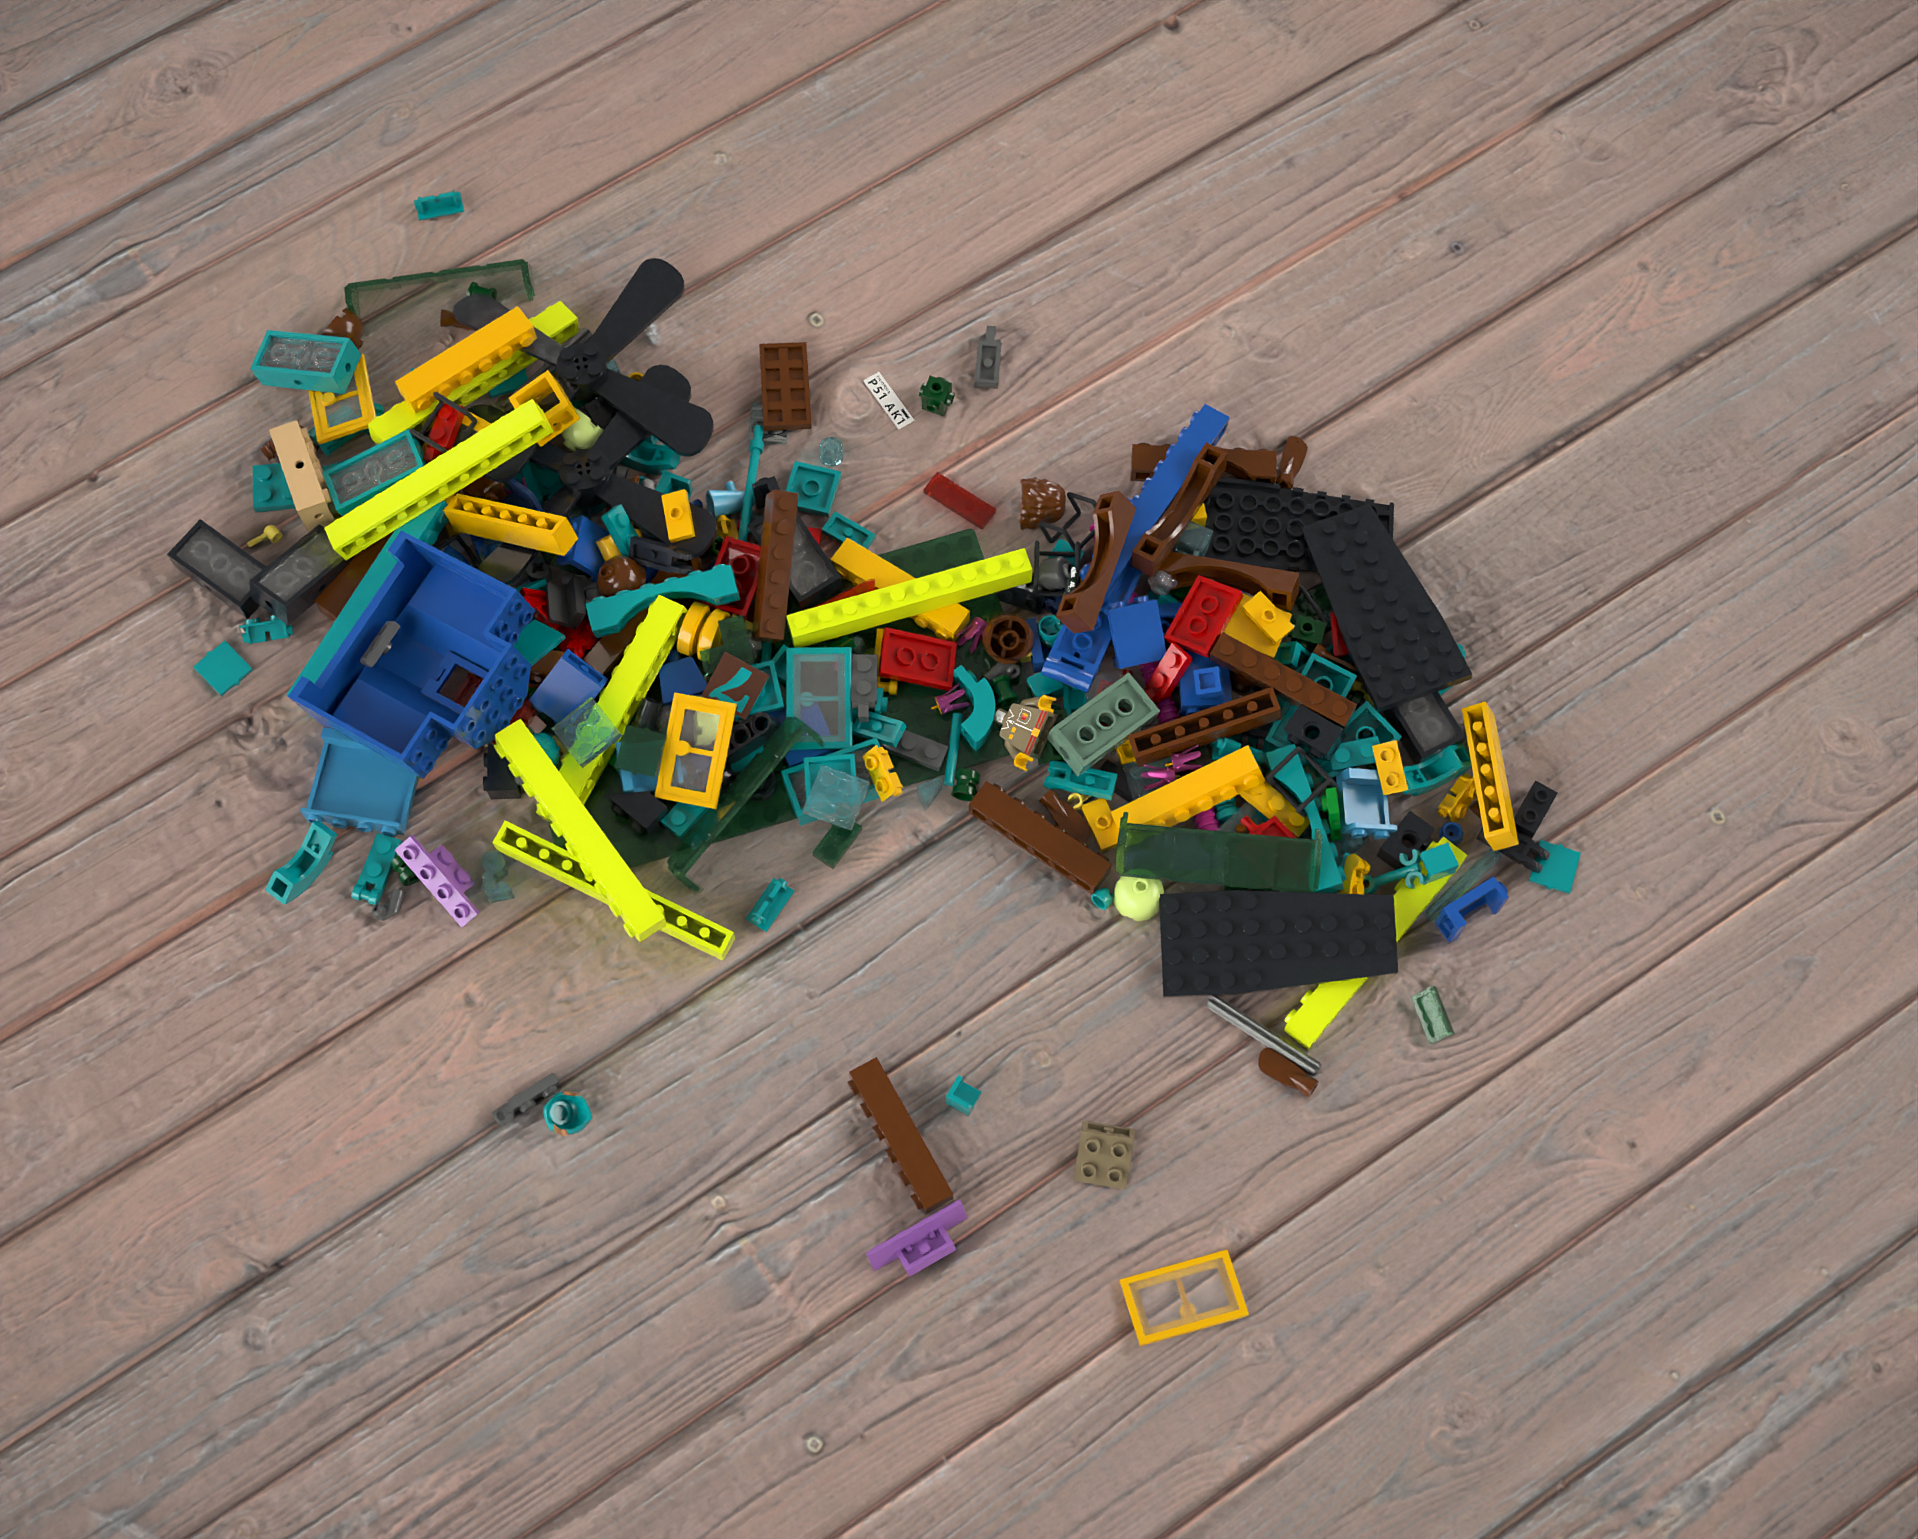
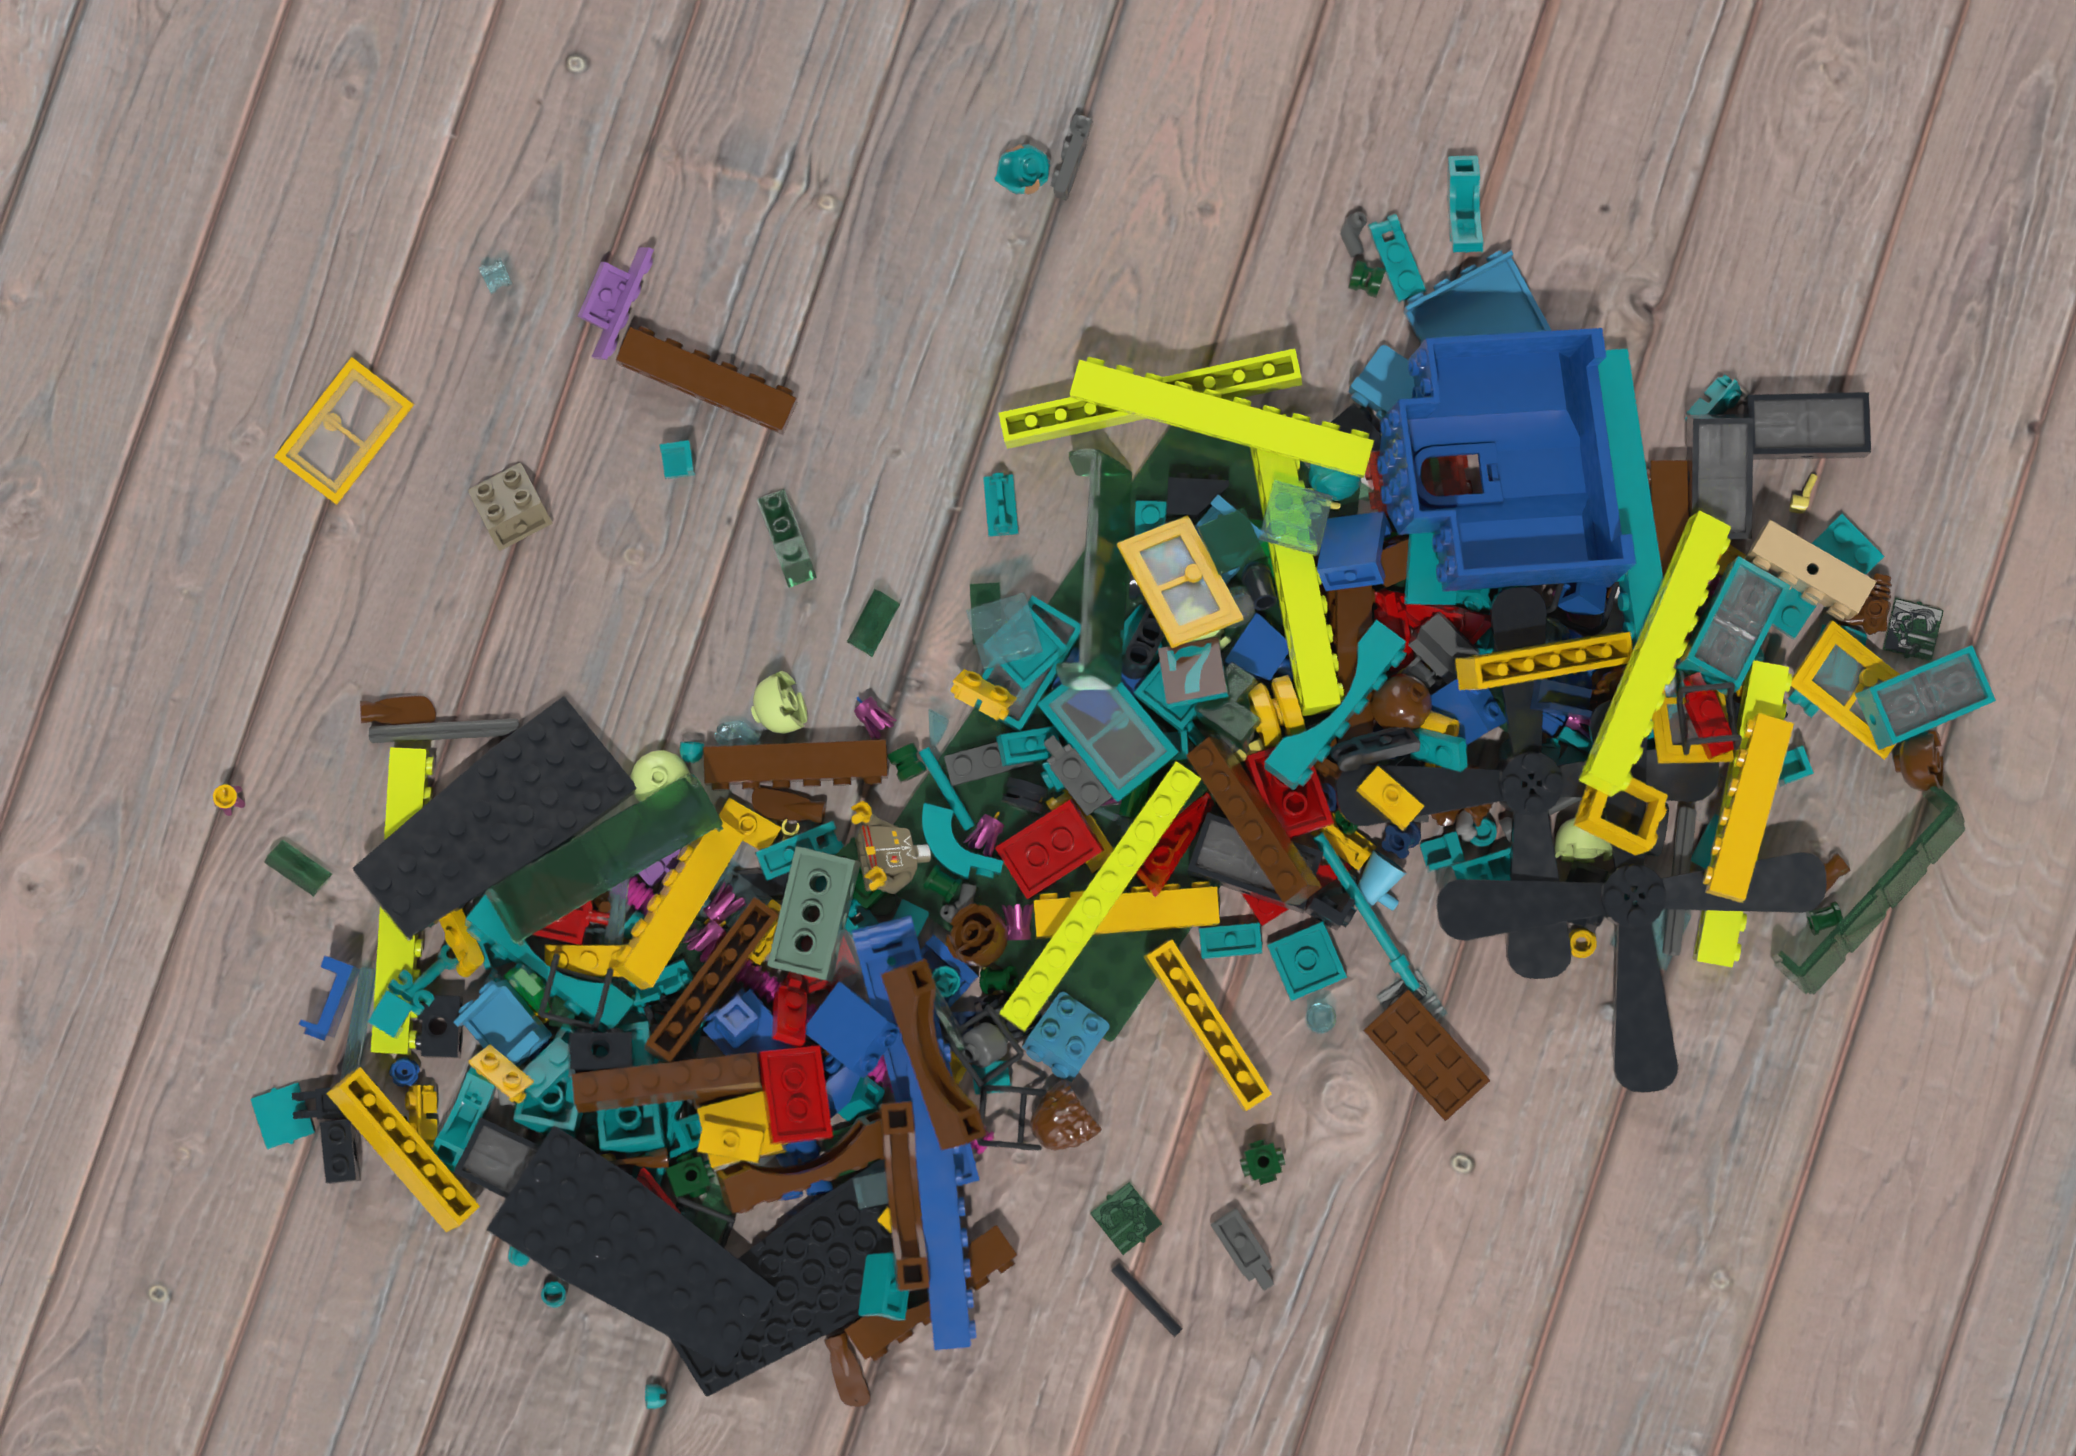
camera: 140 degrees right, 15 degrees up
(223, 668) = (1722, 336): teal piece -> none
(276, 412) = (1912, 629): none -> piece
(380, 644) = (1569, 452): dark grey plate -> none
(439, 206) = (1962, 988): teal hinge -> none
(441, 876) = (1322, 292): medium lavender bracket -> none
(455, 790) = (1383, 382): none -> dark azure bracket
(495, 870) = (1284, 338): clear light blue leg -> none
(888, 400) = (1312, 1126): white sticker -> none
(904, 490) = (1207, 1025): none -> yellow brick
(906, 703) = (1024, 795): none -> black wheel
(916, 889) = (873, 623): none -> clear green plate
(929, 989) = (786, 538): none -> clear green slope
(959, 500) = (1150, 1066): clear red tile -> none
(965, 832) = (873, 717): none -> flat silver piece
(992, 1325) = (495, 275): none -> clear light blue wheel
(996, 540) = (1065, 1036): none -> dark azure bracket
(1010, 606) = (998, 979): none -> dark green bush
(1022, 880) = (778, 705): none -> yellowish green cylinder
(1046, 428) = (1126, 1218): none -> clear green piece
(1063, 890) = (736, 729): none -> clear light blue arm
(1071, 375) = (1146, 1299): none -> black bar
(1162, 583) = (866, 1110): clear plate -> none
(1235, 481) = (879, 1289): none -> teal panel
(1427, 528) = (652, 1396): none -> teal hinge
(1452, 1096) = (226, 796): none -> yellow piece
(1453, 625) = (552, 1289): none -> teal hinge

